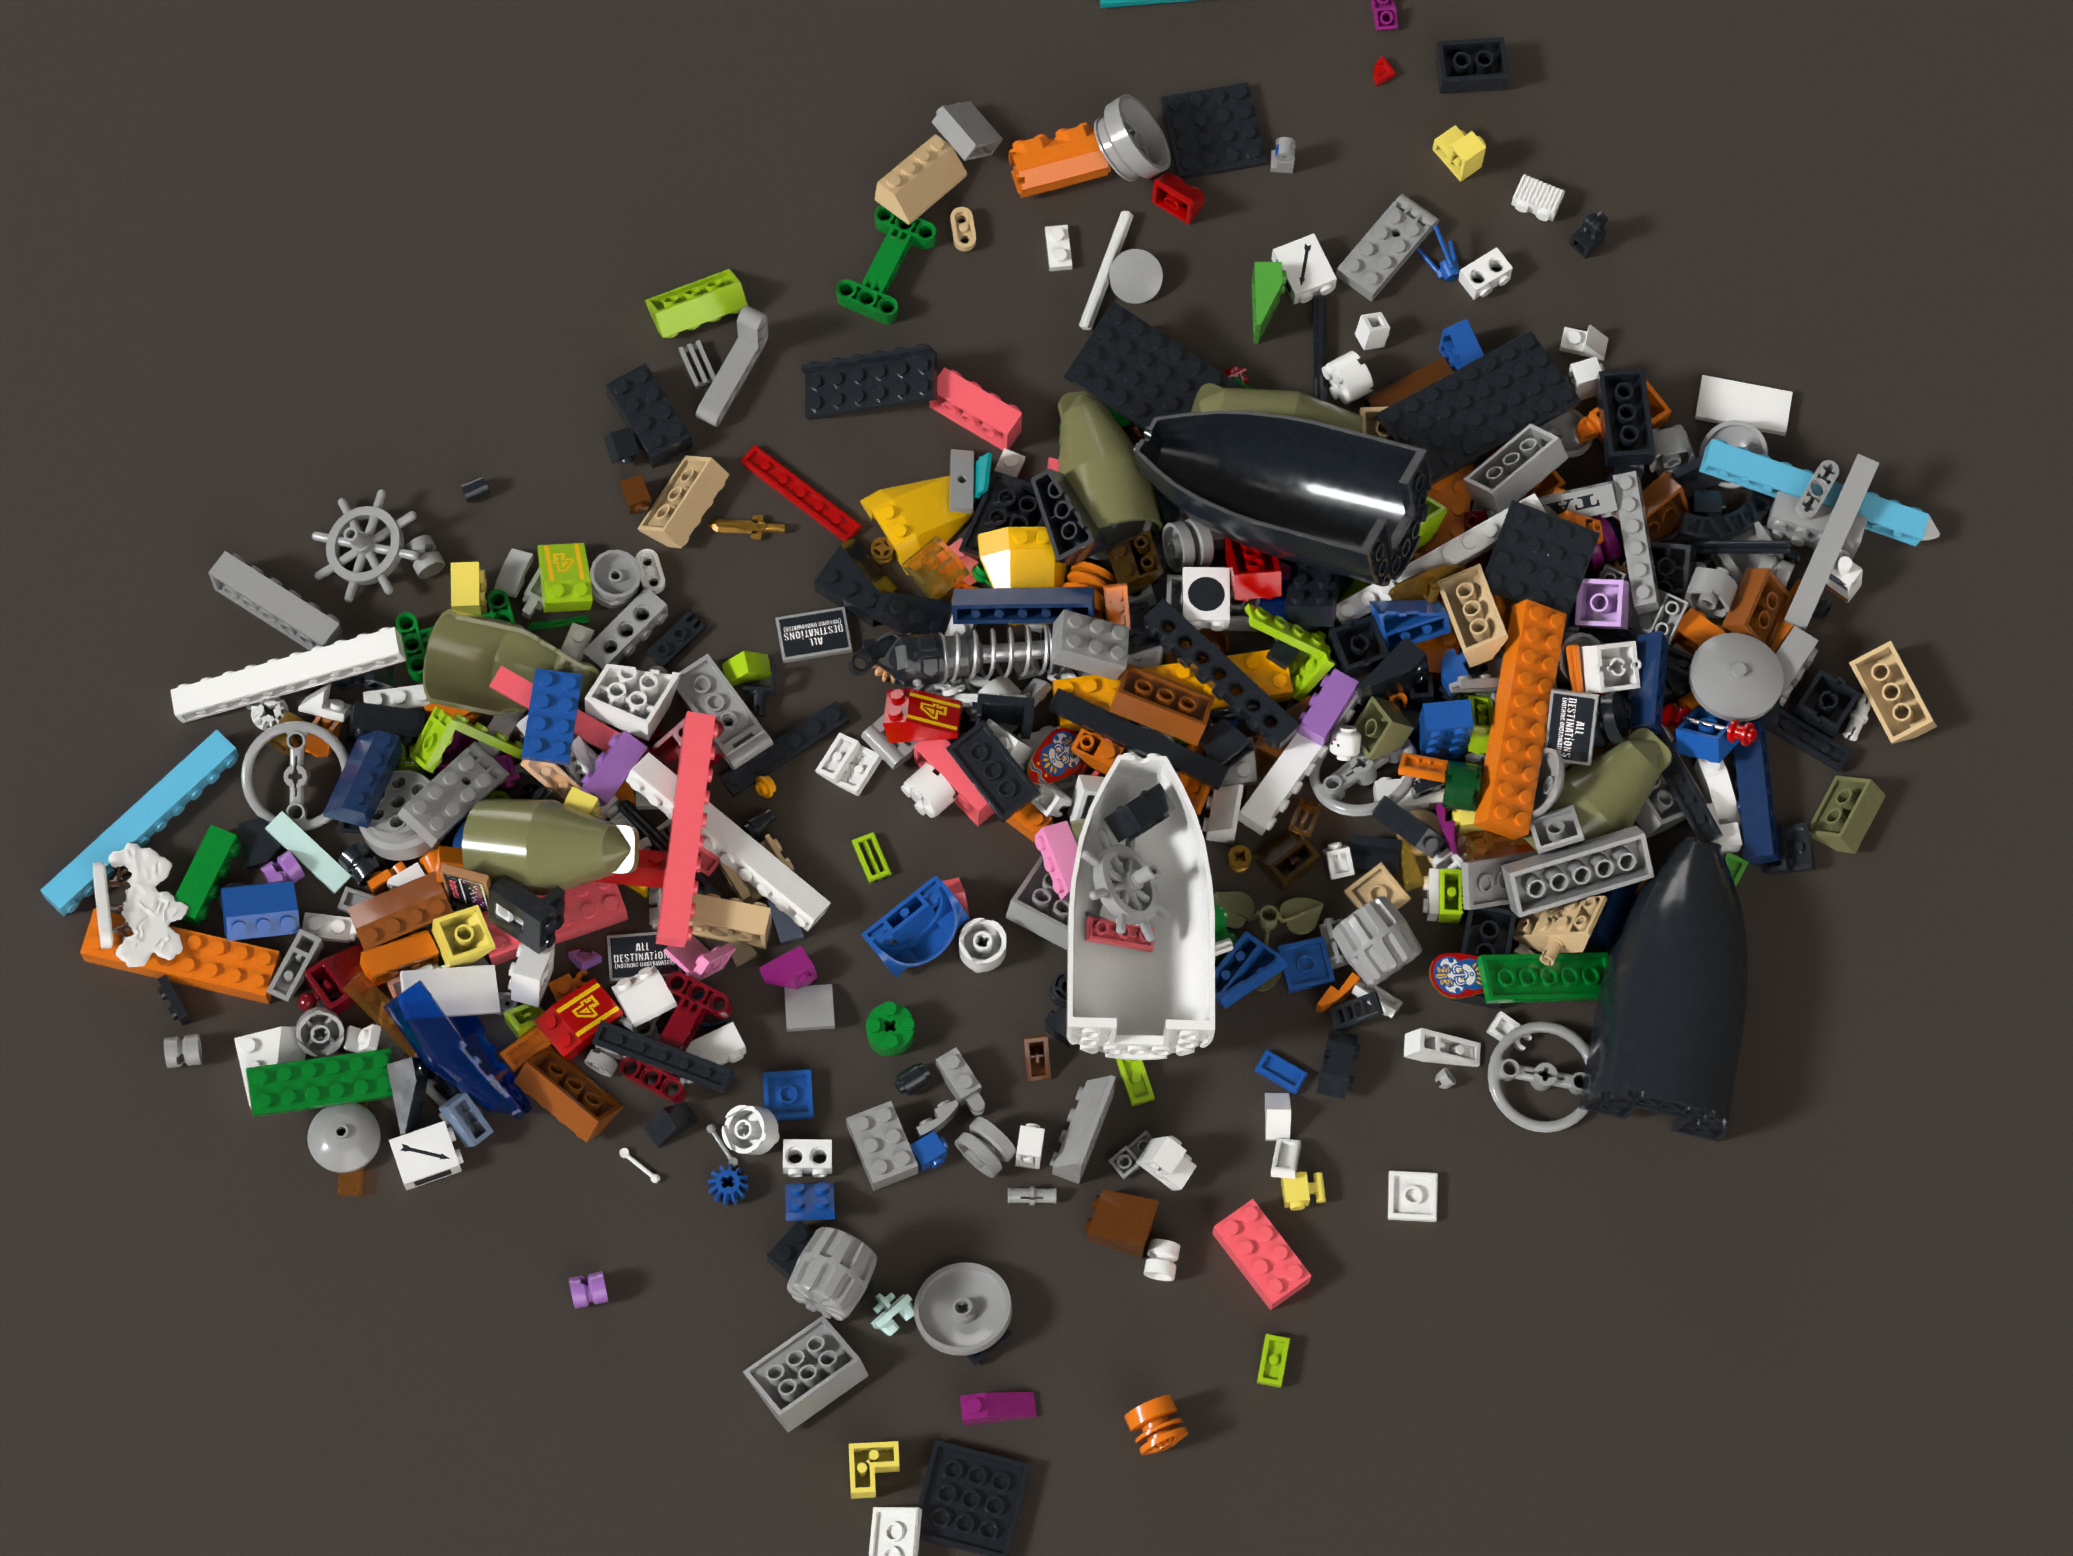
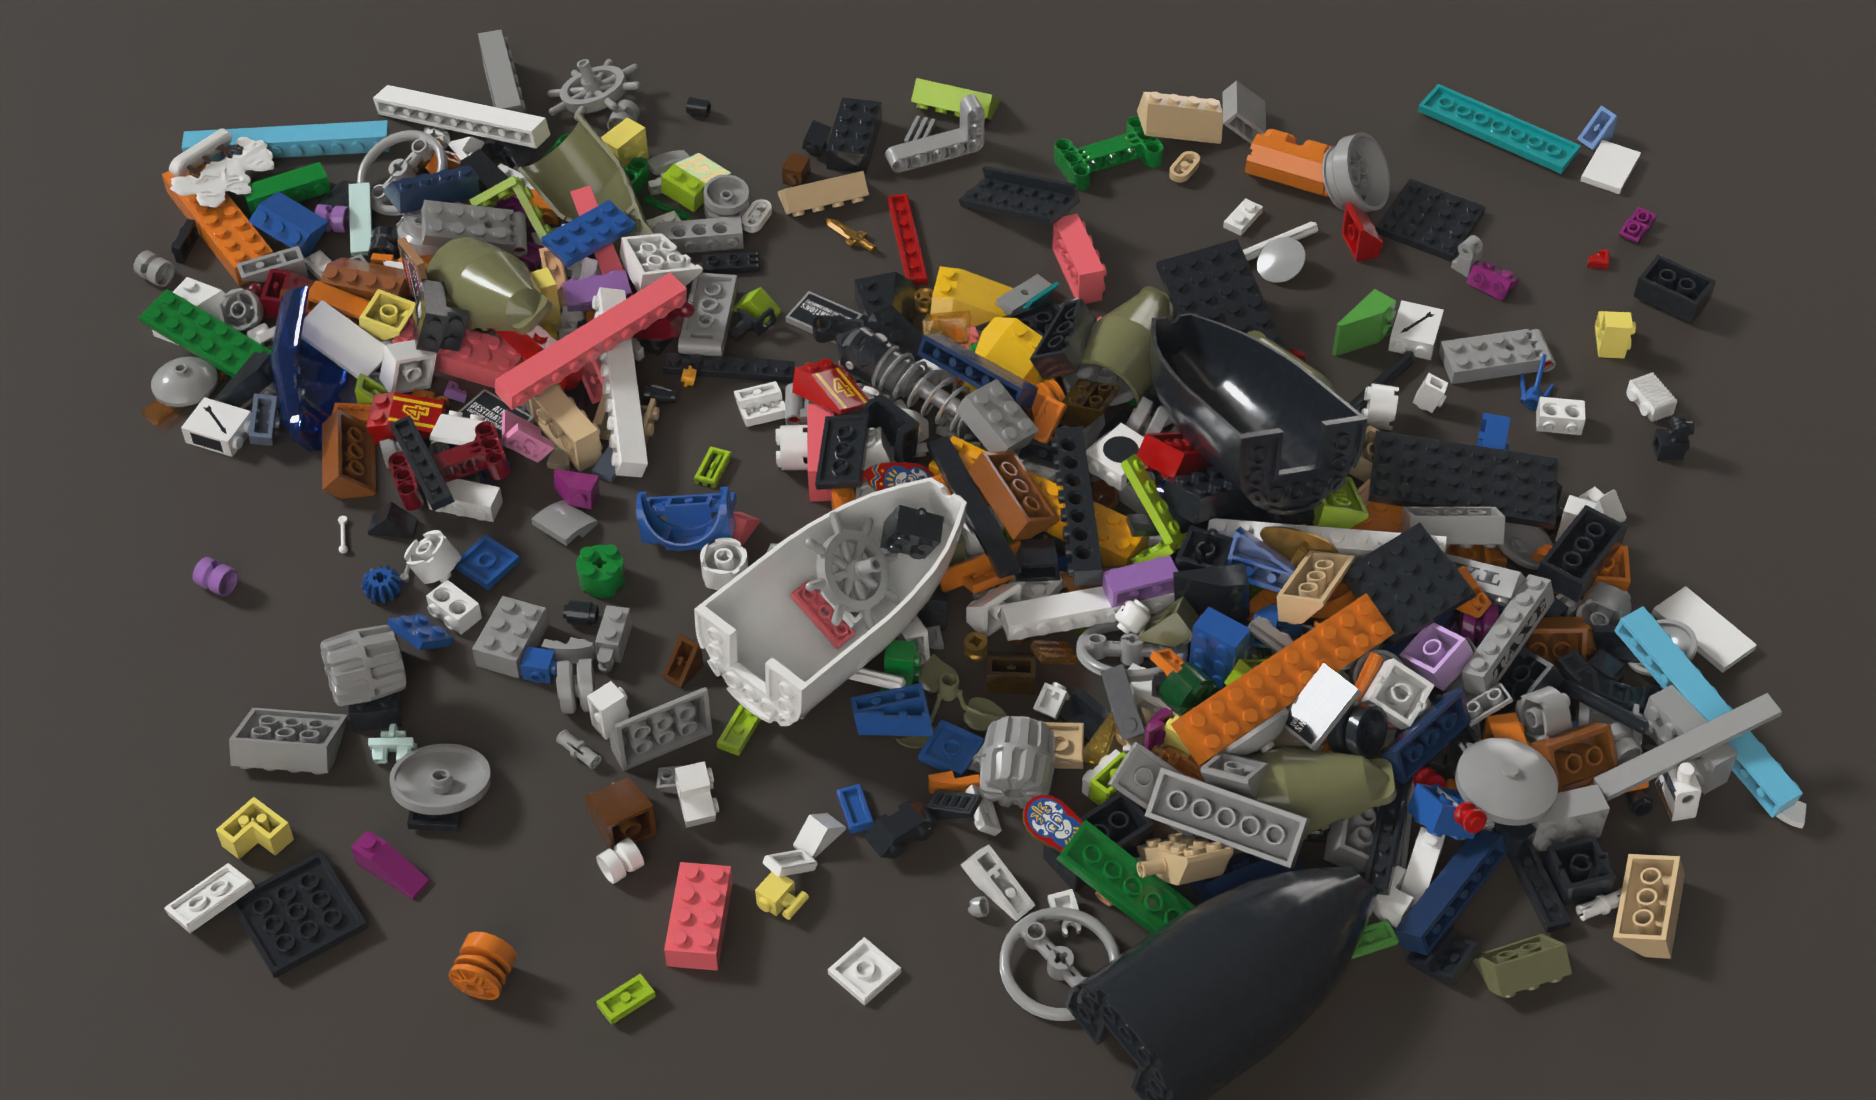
camera: 45 degrees right, 20 degrees down
(1318, 163) = (1491, 279): none -> magenta bracket
(1824, 484) = (1715, 694): light grey beam -> none

